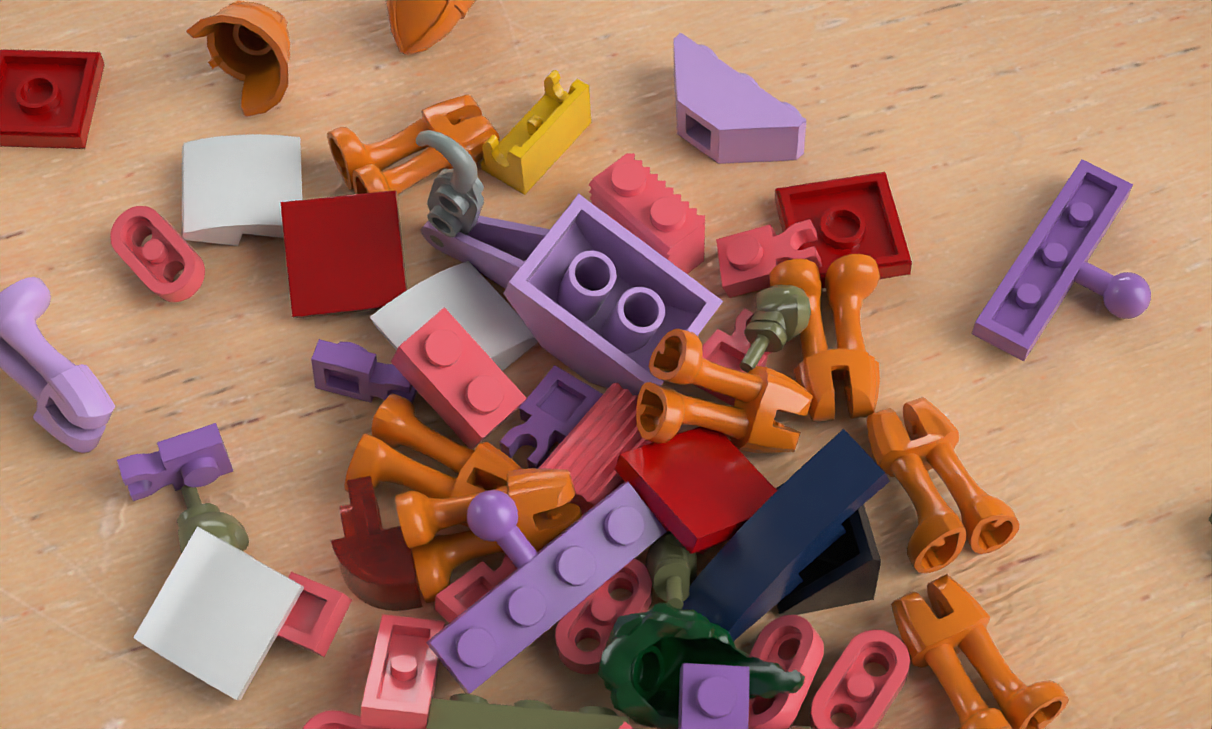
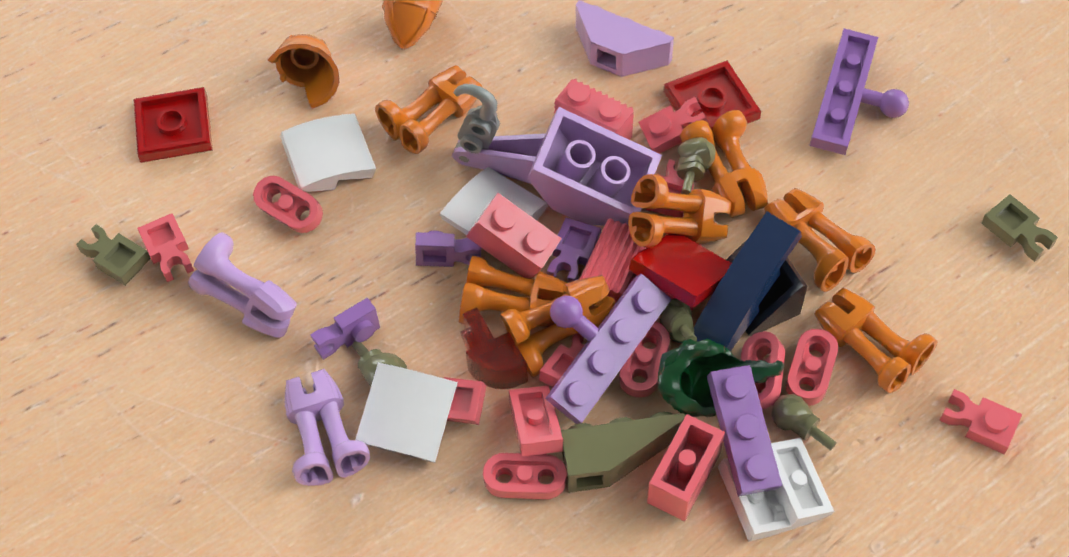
camera: 15 degrees left, 0 degrees up
(76, 573) = (322, 405): none -> lavender piece
(343, 253) = (410, 178): red tile -> none
(540, 135) = (510, 77): yellow hinge -> none

